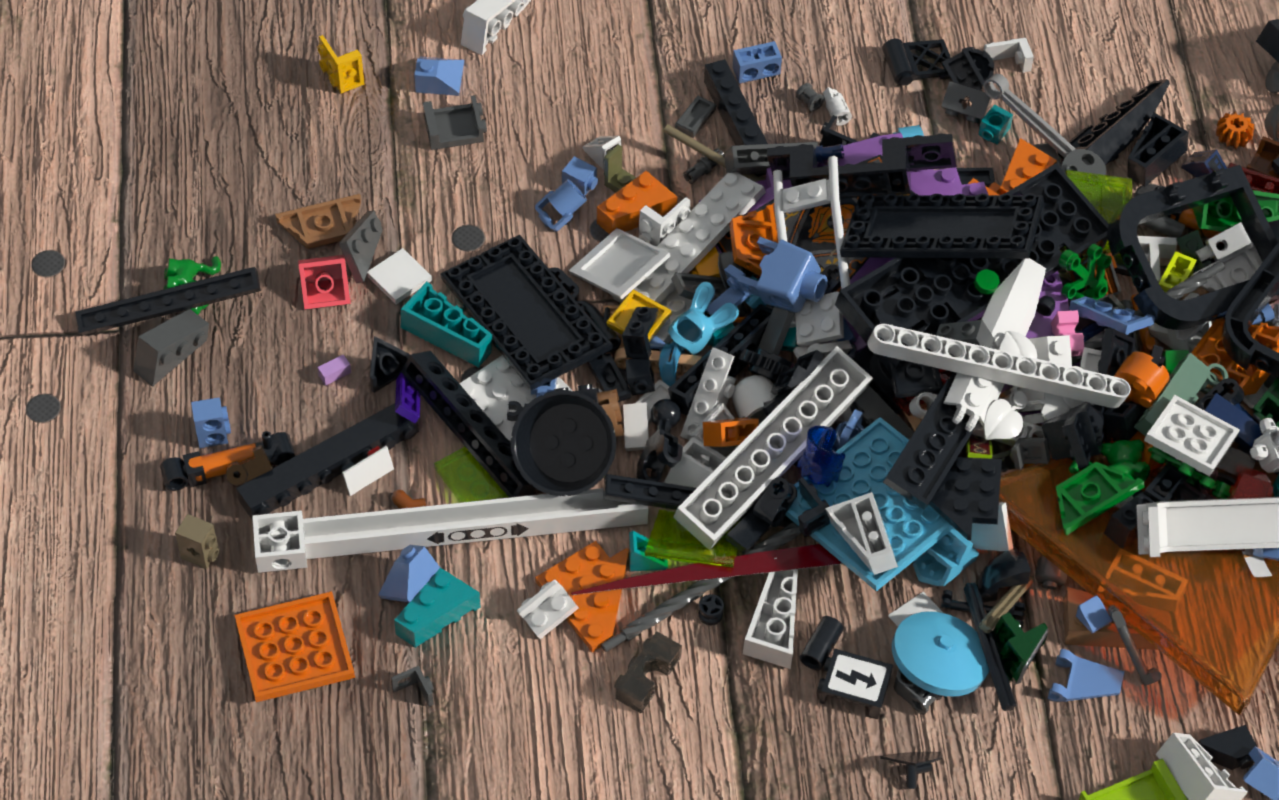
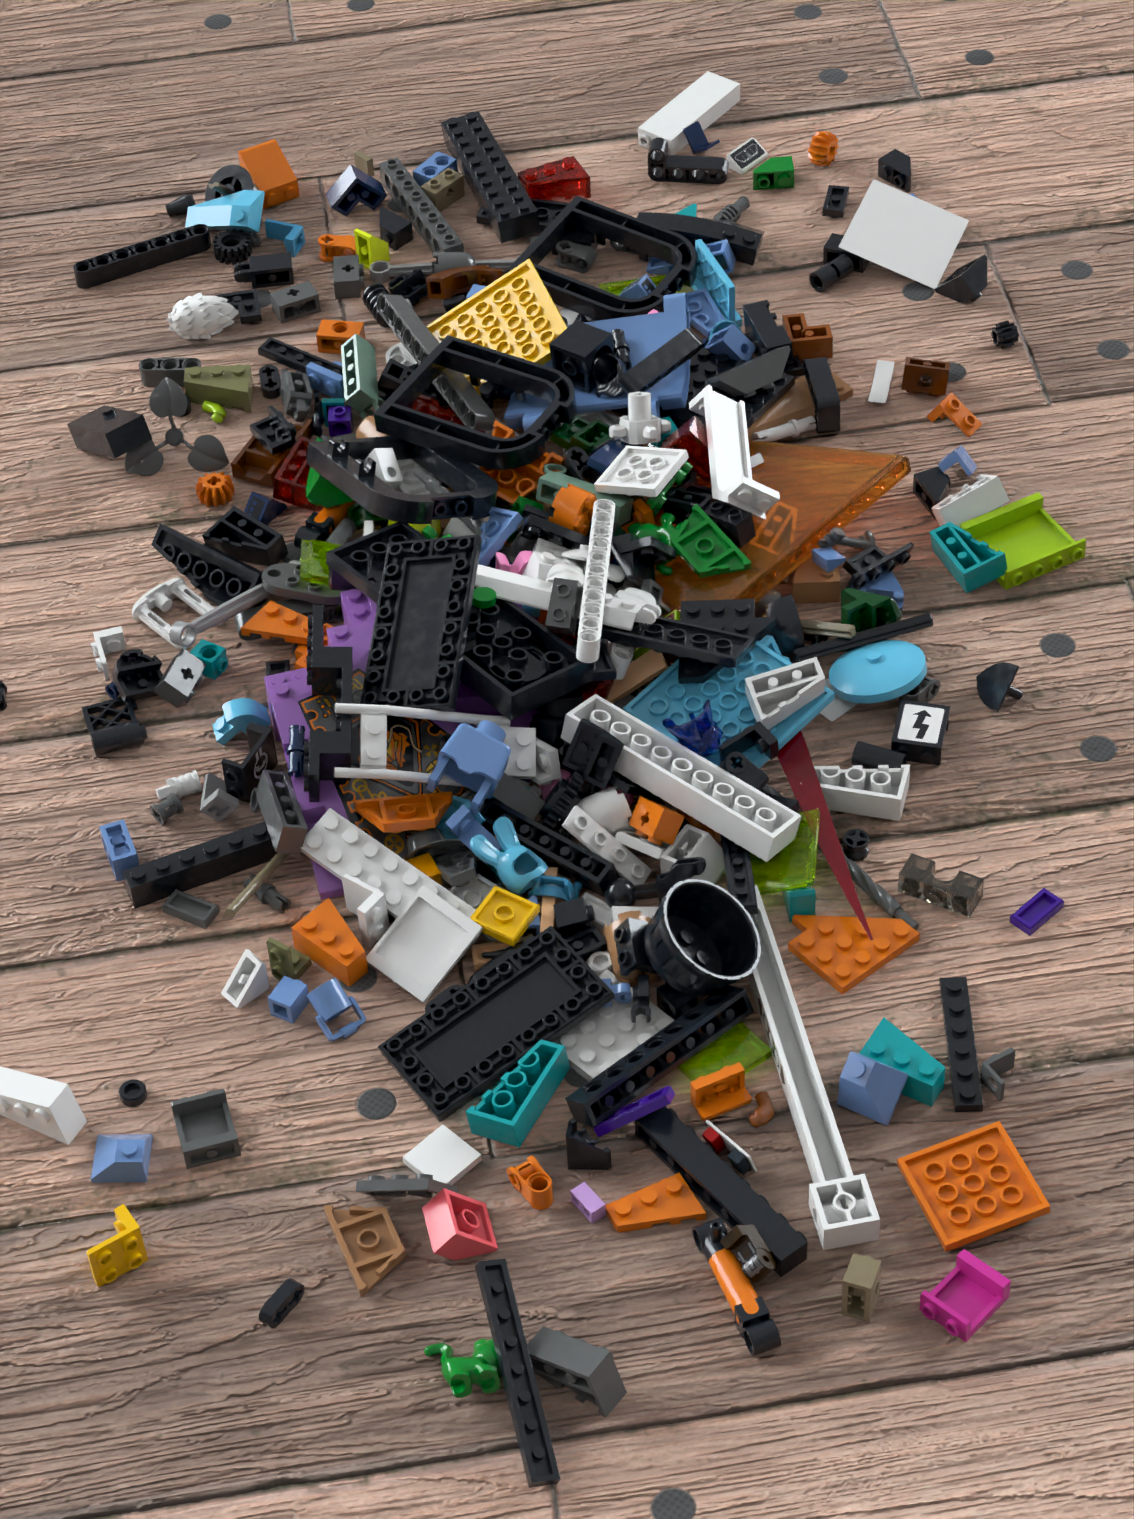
camera: 90 degrees left, 10 degrees down
(182, 624) = (966, 1296): none -> dark pink panel
(211, 422) = (692, 1301): medium blue brick -> none
(276, 168) = (281, 1303): none -> black beam
(322, 414) = (658, 1203): none -> orange wing
(359, 332) = (532, 1183): none -> orange piece
(425, 469) = (719, 1092): none -> orange bracket
(461, 664) = (960, 1045): none -> black plate
(502, 80) = (133, 1093): none -> black tile
(547, 608) = (884, 968): white bracket -> none
(611, 754) = (1036, 911): none -> dark purple tile
(636, 333) = (529, 901): black bracket -> none
(811, 127) = (215, 799): none -> light grey bracket
(1078, 87) = (162, 598): none -> white piece
(1101, 665) = (872, 563): none -> black bracket
(1110, 756) = (966, 558): none -> teal wedge

